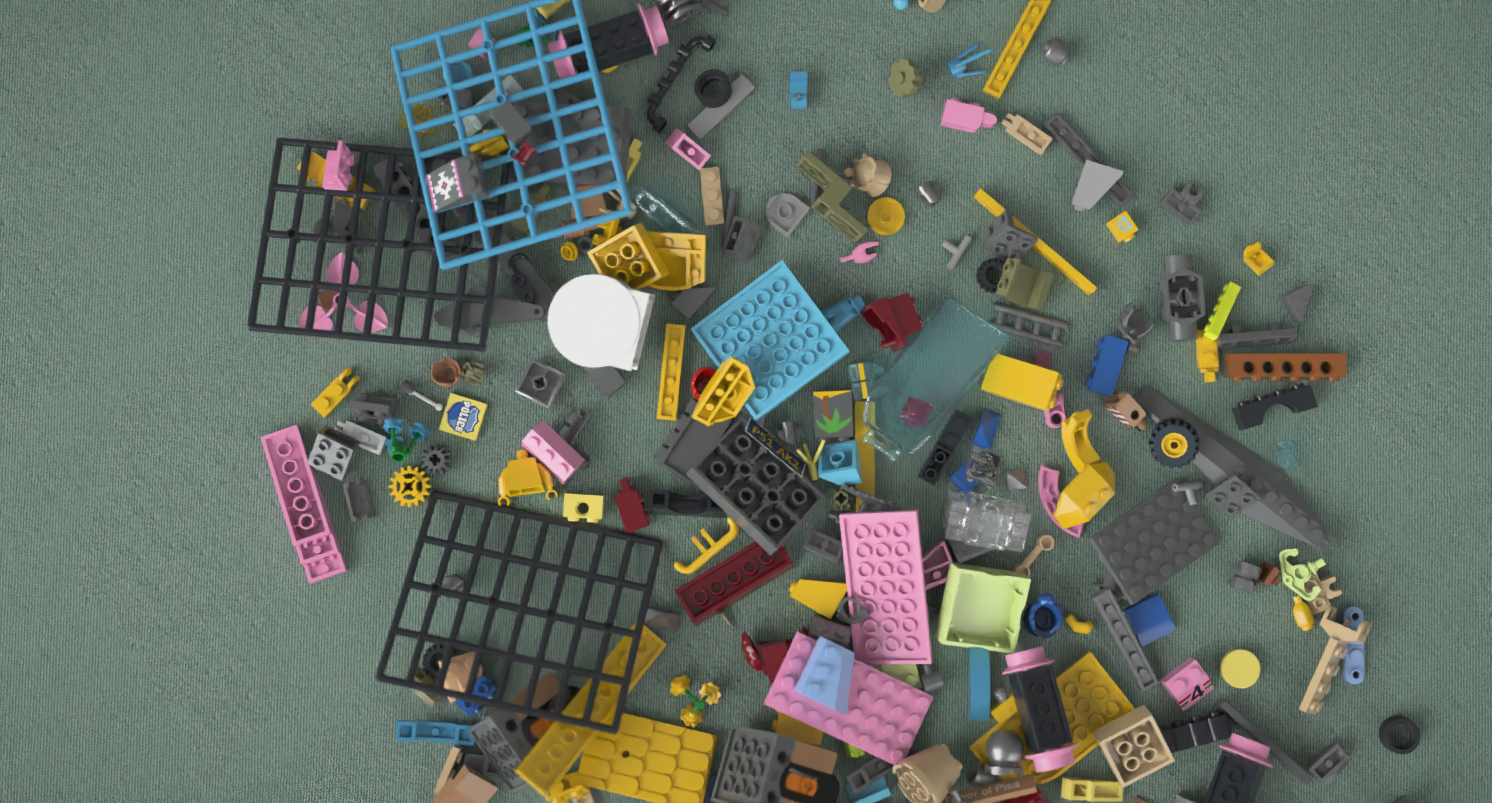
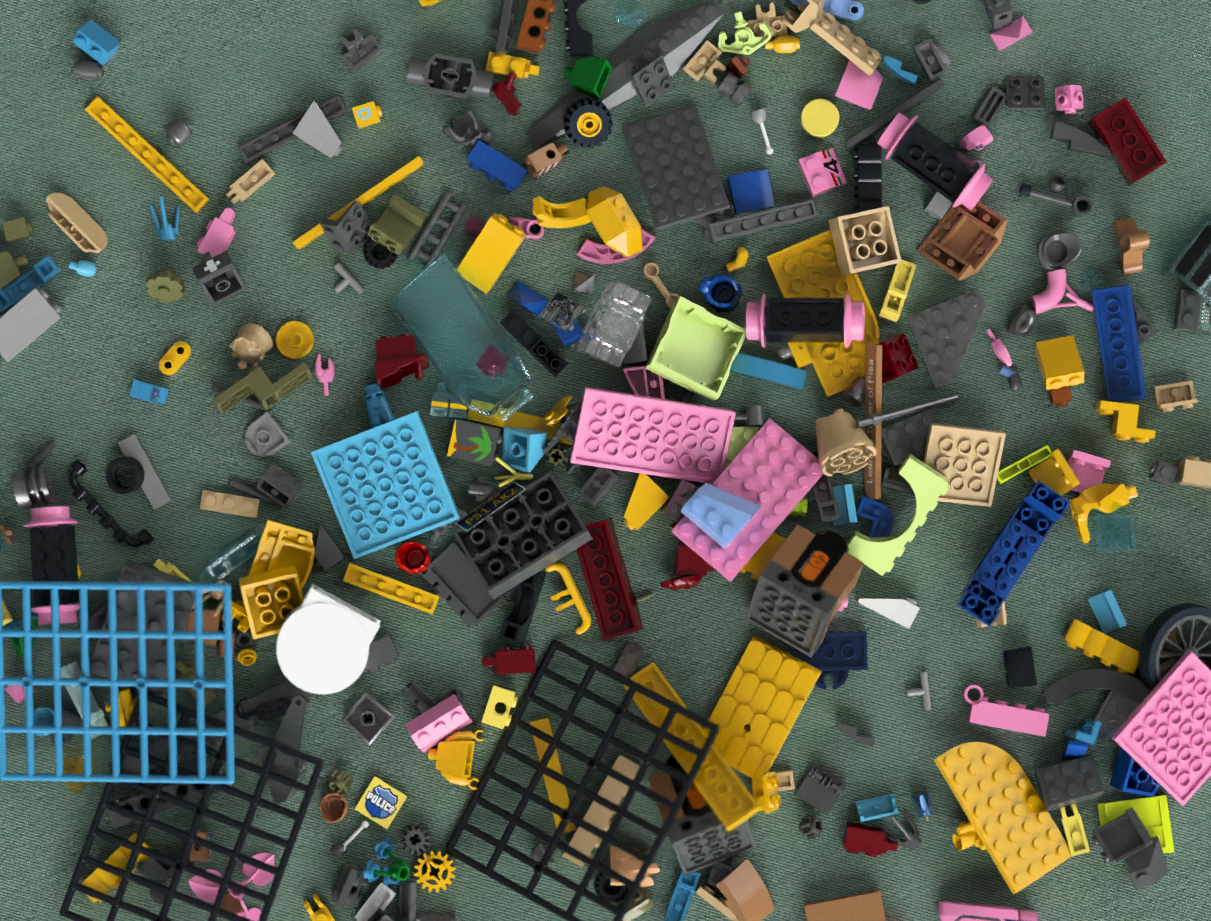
camera: 75 degrees left, 0 degrees up
(338, 167) = (107, 860): bright pink bracket -> none
(367, 254) = (203, 853): none -> medium nougat head
(374, 467) = (407, 900): none -> flat silver tile
(457, 183) = (154, 746): dark grey slope -> none
(483, 688) = (660, 863): blue bracket -> none
(502, 630) = (599, 815): none -> tan brick
(511, 124) = (112, 677): dark grey hinge -> none
(515, 584) = (556, 791): none -> yellow tile
(524, 154) = (144, 672): dark red bush -> none
(687, 149) = (177, 515): bright pink slope -> none
(709, 692) = (711, 632): yellow plant -> none
(725, 393) = (425, 541): yellow wedge -> none
(837, 107) = (176, 359): none -> yellow plate
(844, 618) = (672, 483): dark grey piece -> none
(884, 488) = (558, 411): none -> yellow plate
(927, 126) = (219, 277): none -> dark grey hinge
(928, 194) = (284, 292): flat silver piece -> none
(1005, 752) = (838, 365): flat silver tile -> none
(1179, 354) = (504, 93): none -> dark red piece
(1188, 488) = (635, 120): light grey piece -> none
(1220, 432) = (589, 76): none -> green torso
(1221, 310) = (473, 42): neon yellow piece -> none
(1224, 608) = (759, 117): none -> hinge
(1262, 541) = (704, 63): none -> tan plate
(1283, 699) = (859, 86): none -> bright pink slope
(1309, 729) = (894, 67): none -> dark azure slope

